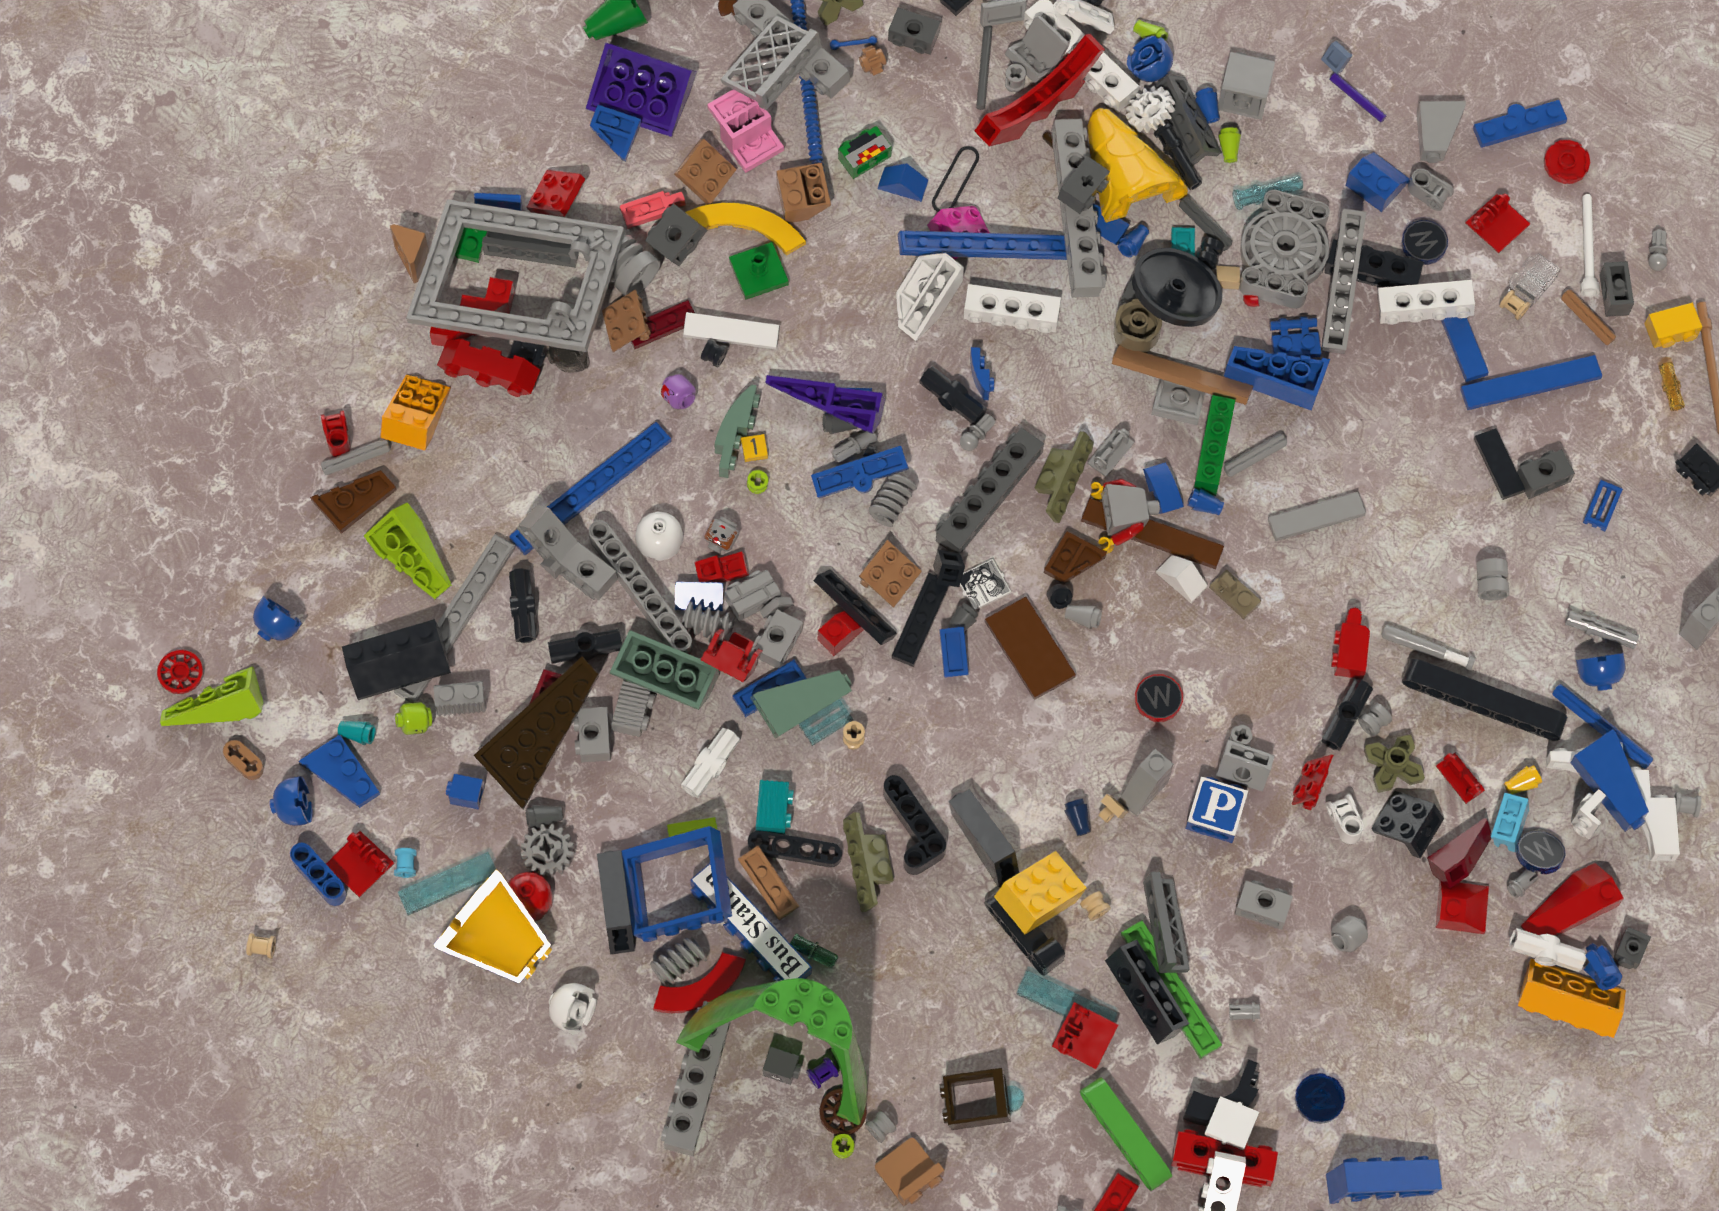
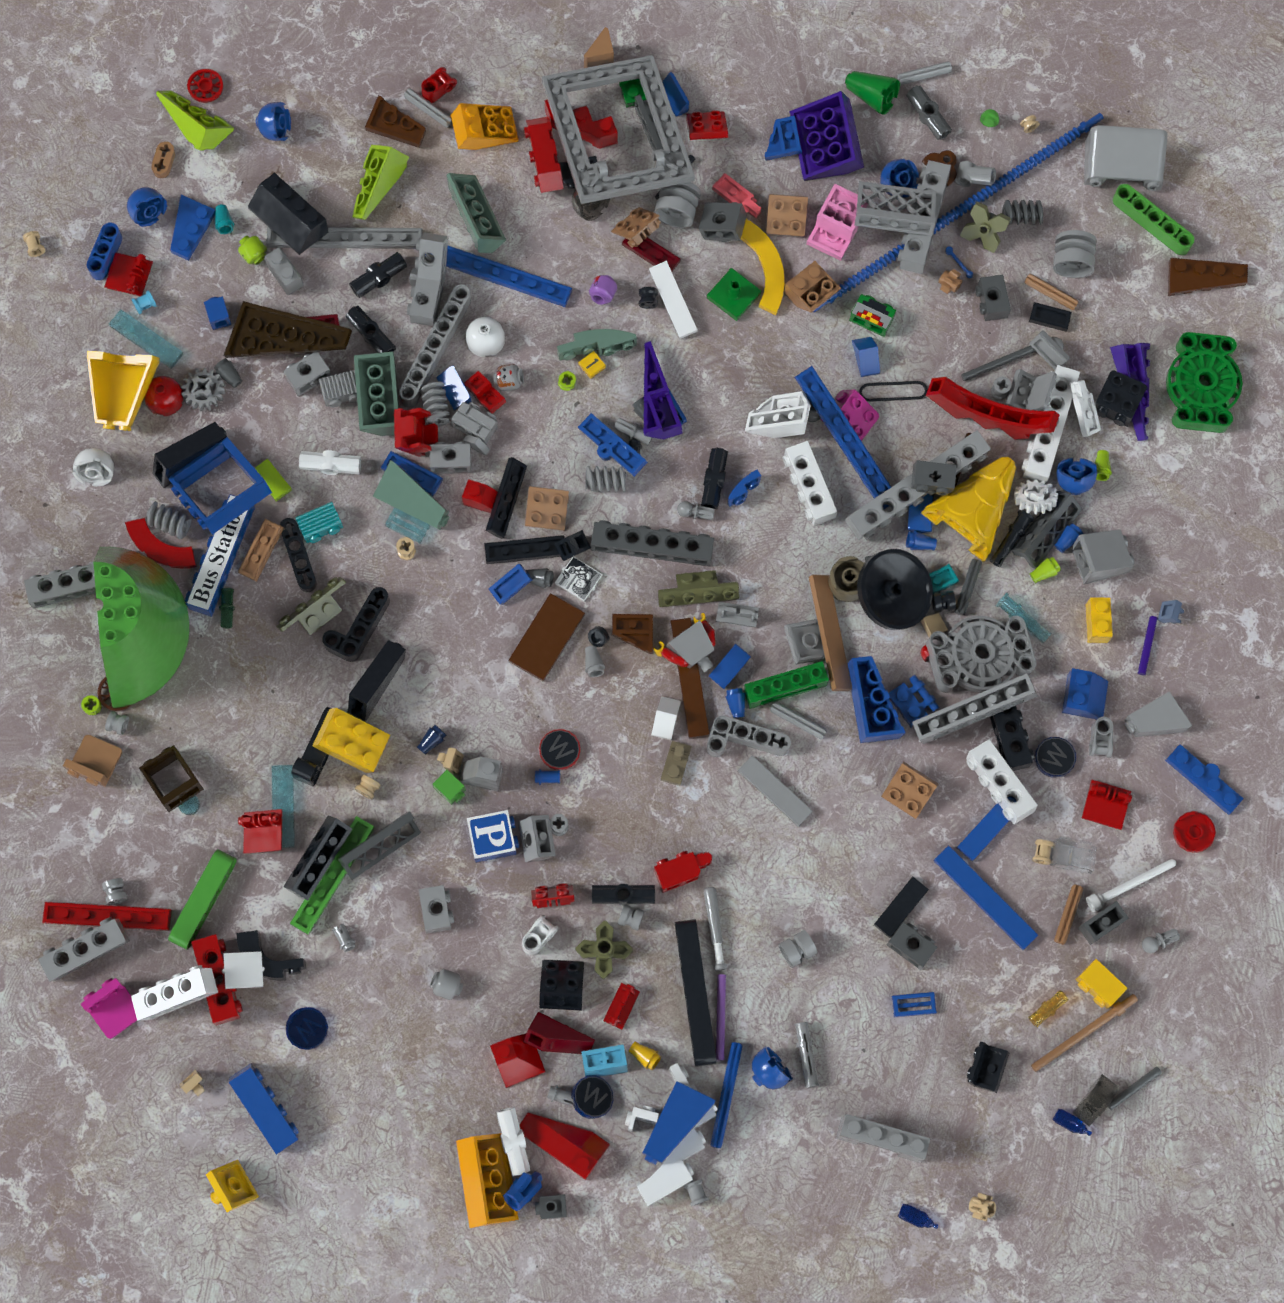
camera: 60 degrees right, 5 degrees up
(515, 469) = (476, 212): none -> sand green slope
(729, 43) = (901, 174): none -> blue cylinder
(1141, 824) = (449, 787): none -> bright green brick
(1181, 724) = (547, 776): none -> blue pin
(1251, 509) = (749, 740): none -> light grey beam
(1310, 124) = (1099, 620): none -> yellow brick
(1387, 389) = (909, 790): none -> medium nougat plate
(1516, 688) = (720, 1029): none -> medium lavender bar

